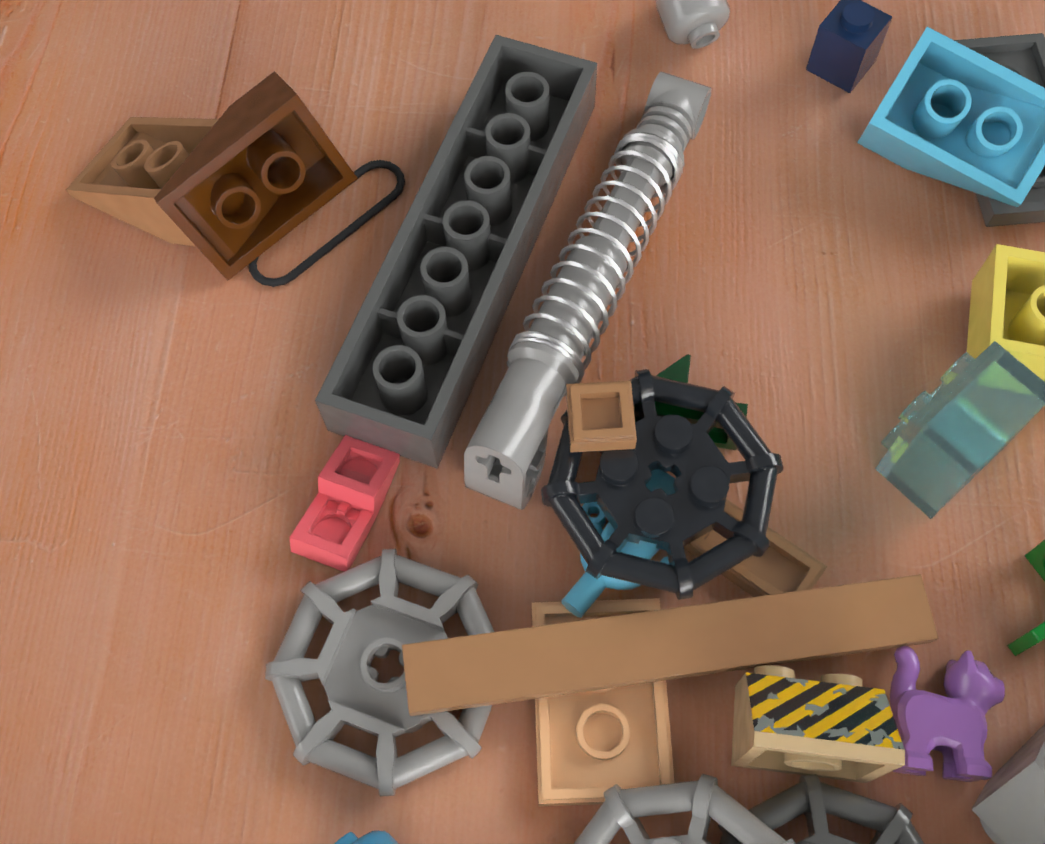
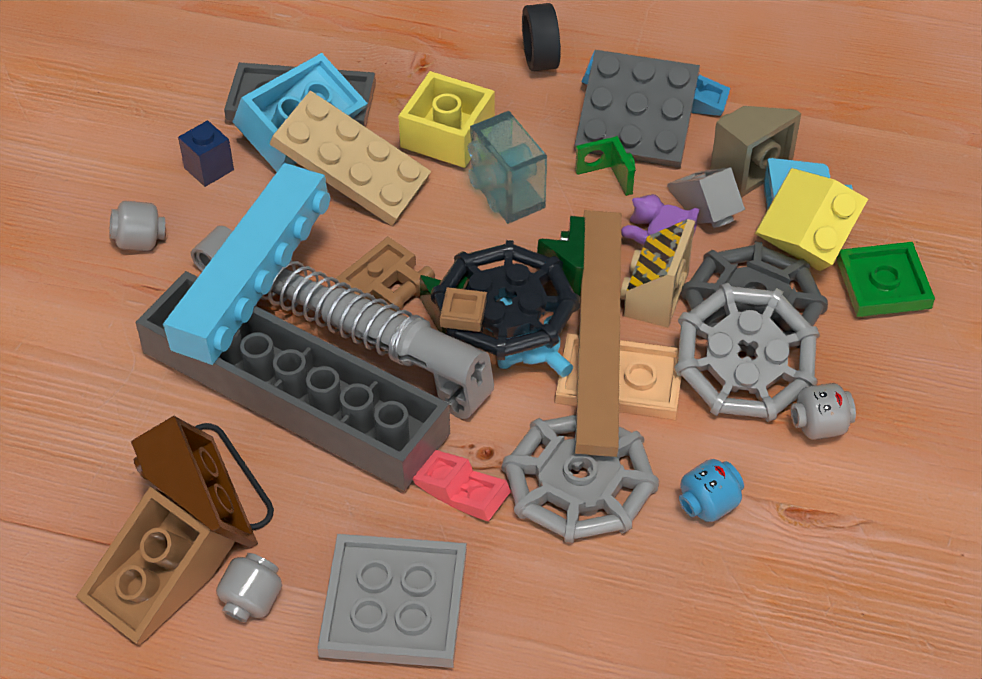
camera: 80 degrees left, 15 degrees down
(139, 280) = (249, 587): none -> light grey head
(139, 457) = (393, 601): none -> light grey plate
(616, 118) = (247, 264): none -> medium azure brick
(701, 303) = (381, 269): none -> medium nougat plate
(795, 566) = (569, 250): none -> dark green slope
(899, 209) = (350, 157): none -> tan plate

